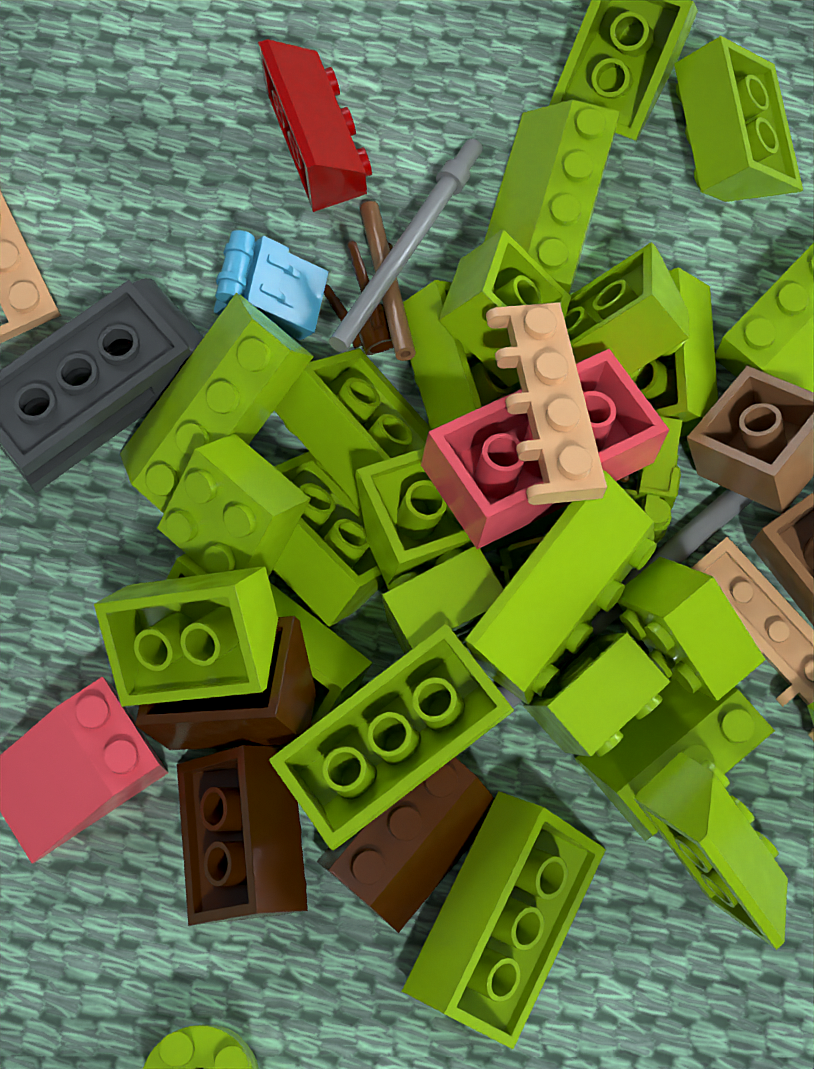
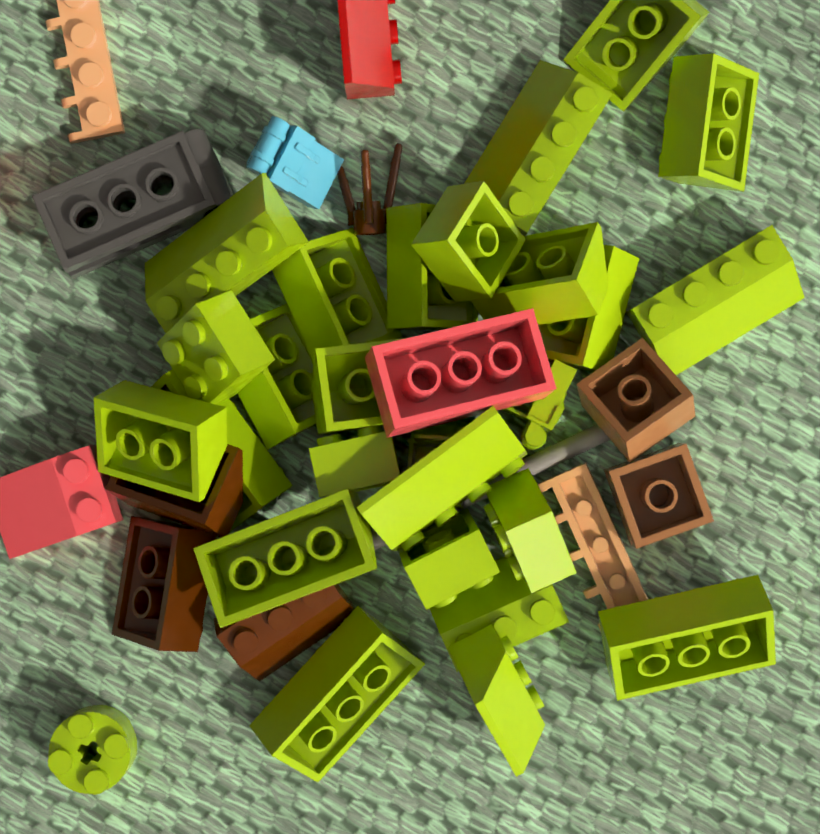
camera: 15 degrees right, 15 degrees up
(392, 300) = (387, 183): medium nougat piece -> none
(450, 182) = (463, 107): light grey bar -> none
(553, 402) = (472, 345): light nougat hinge -> none

